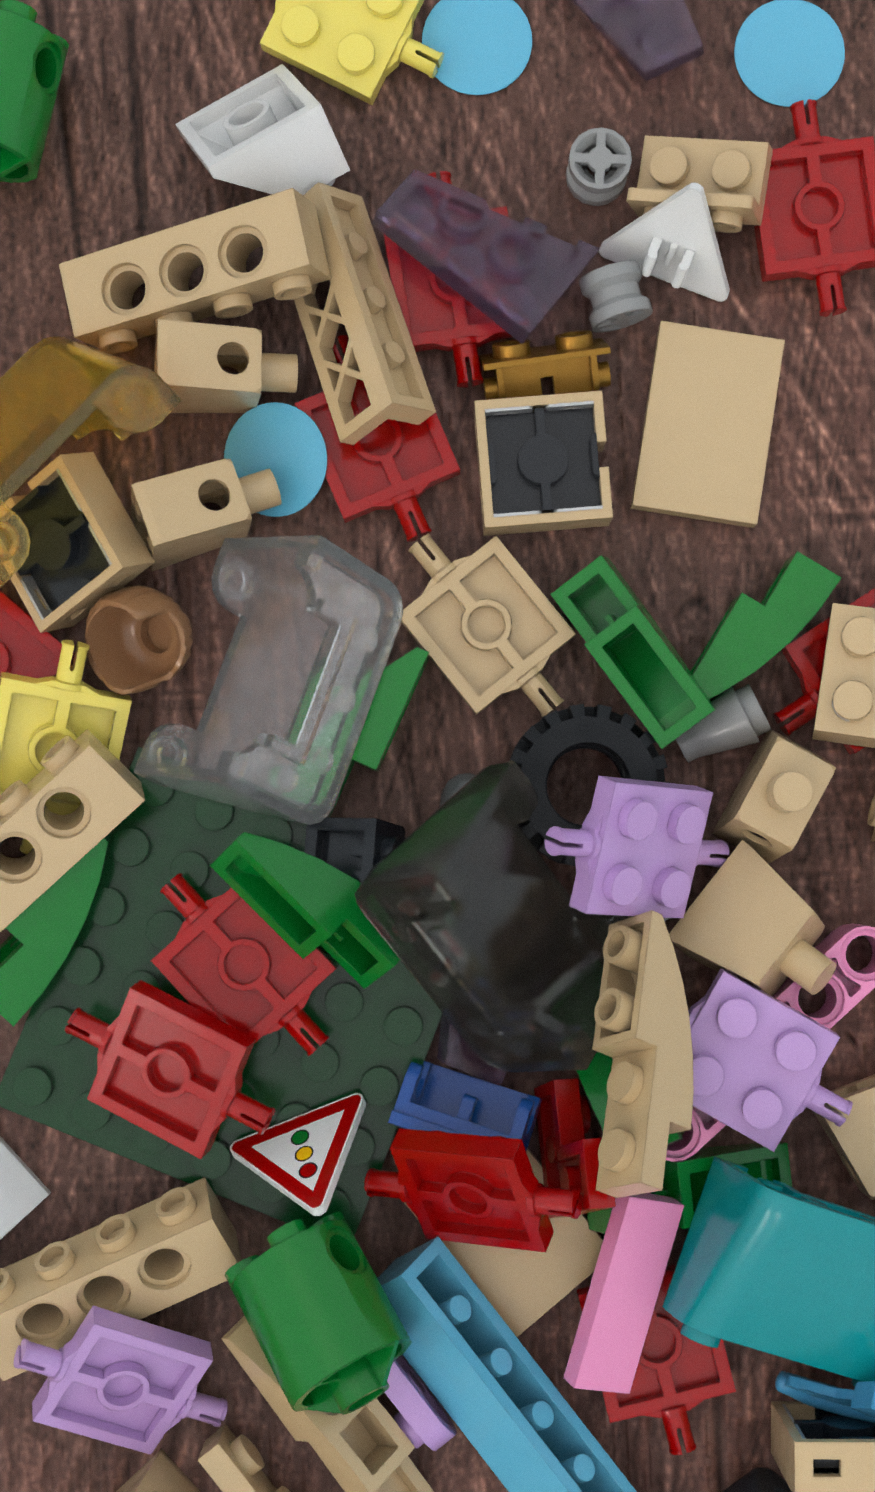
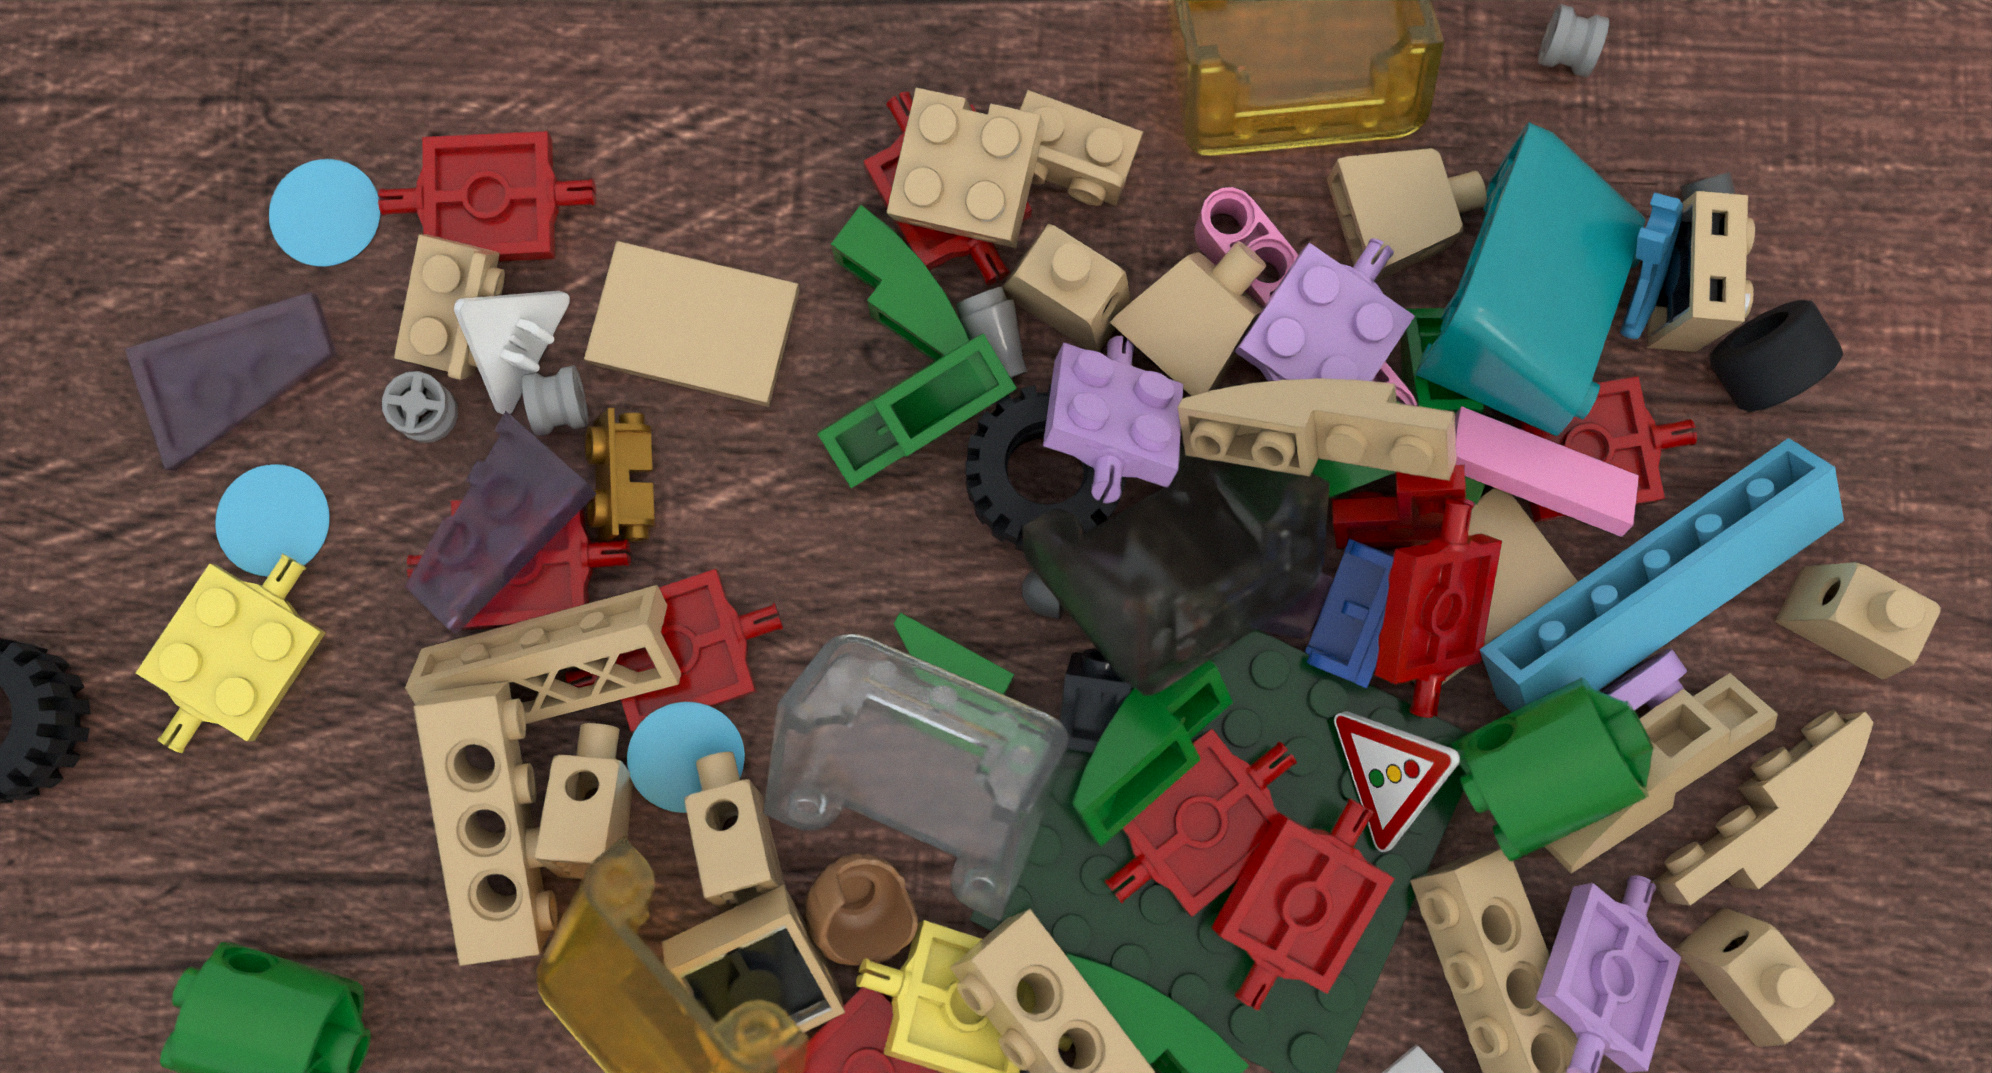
camera: 90 degrees left, 5 degrees down
(266, 136) = (348, 740): white slope -> none
(486, 625) = (875, 556): tan plate -> none
(542, 463) = (717, 487): black piece -> none

